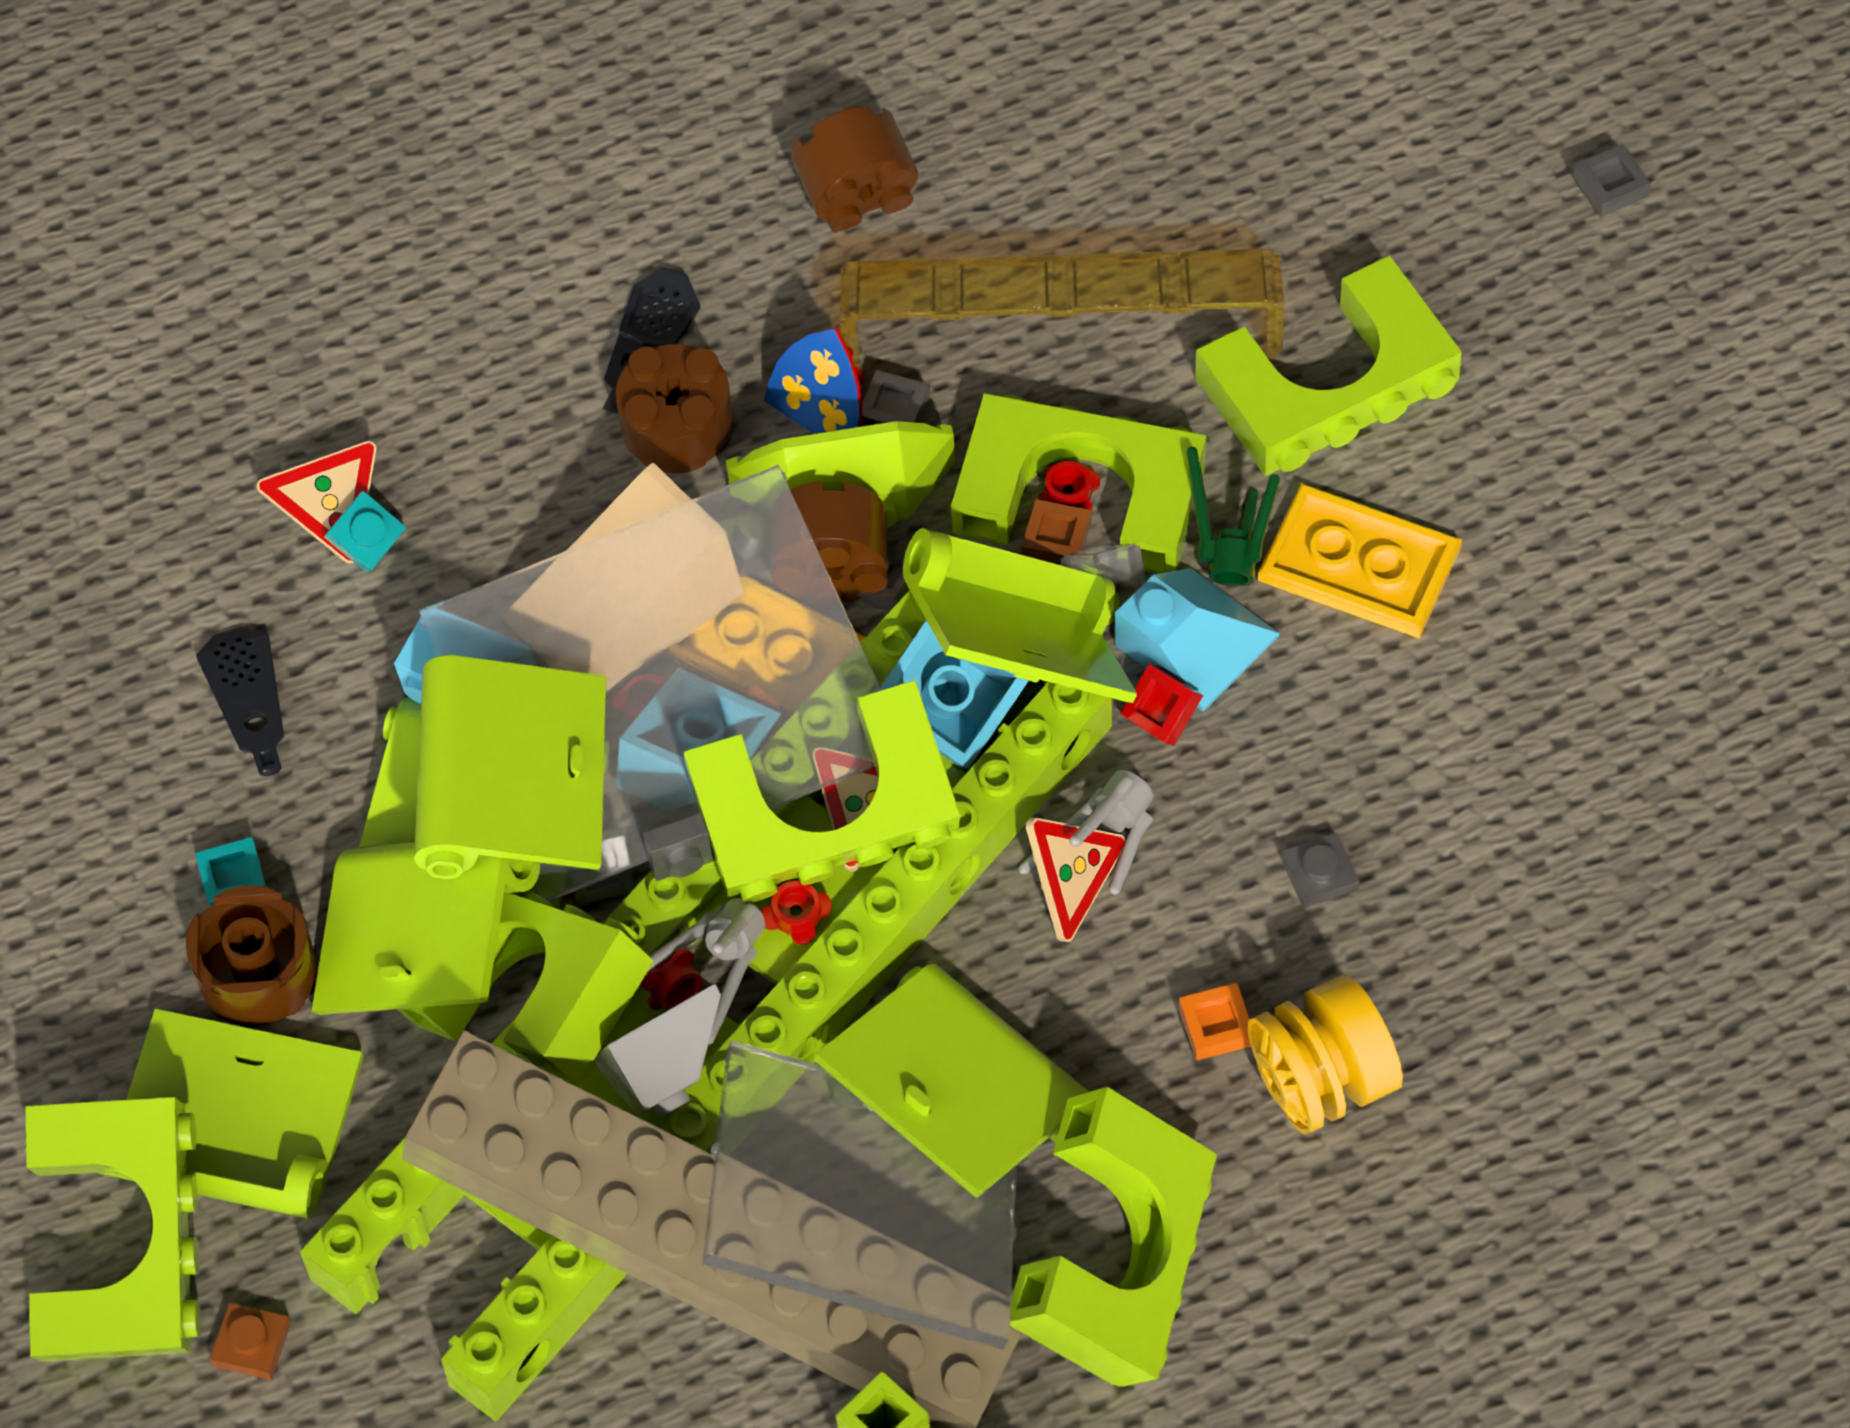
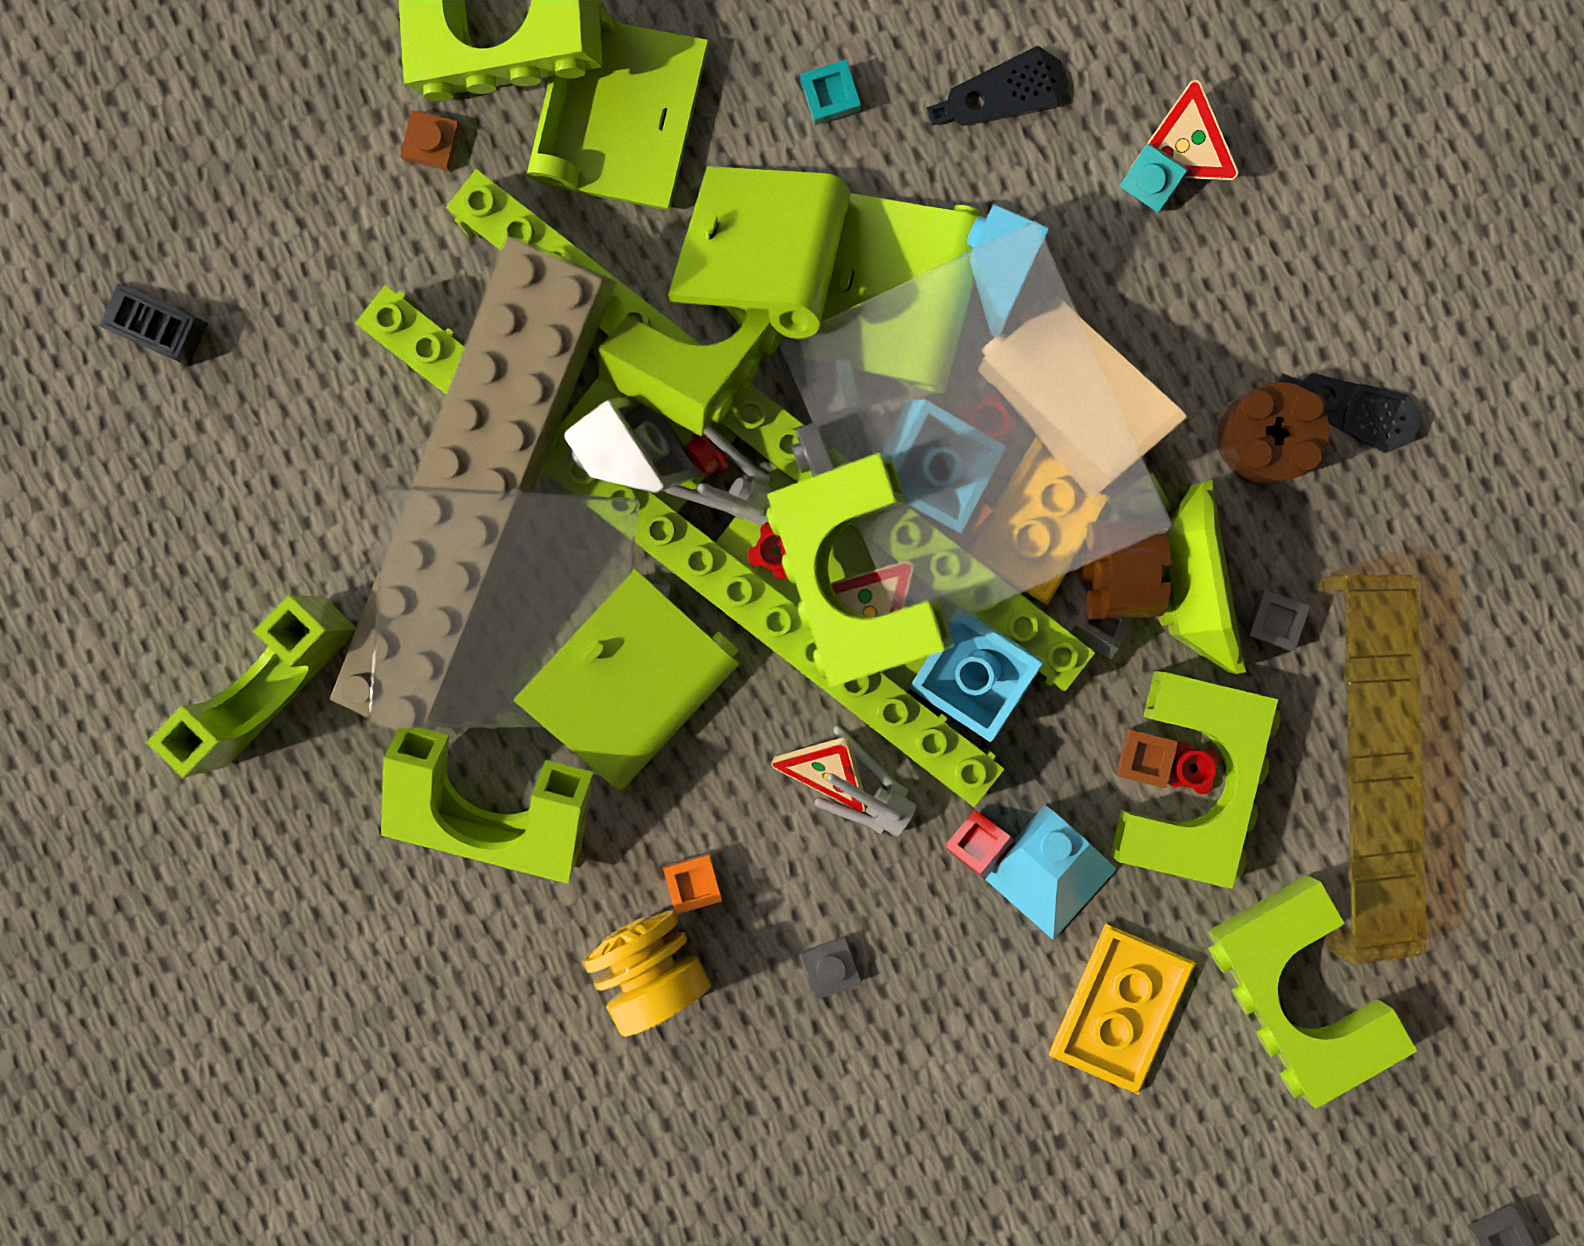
camera: 85 degrees right, 30 degrees up
(252, 956) = (741, 83): reddish brown brick -> none
(499, 765) = (877, 296): lime door -> none
(818, 383) = (1289, 559): blue shield -> none
(855, 167) = (1521, 584): reddish brown brick -> none
(1017, 613) = (1039, 729): lime door -> none
(1114, 561) = (1110, 803): clear slope -> none
(1236, 550) = (1121, 907): dark green plant -> none

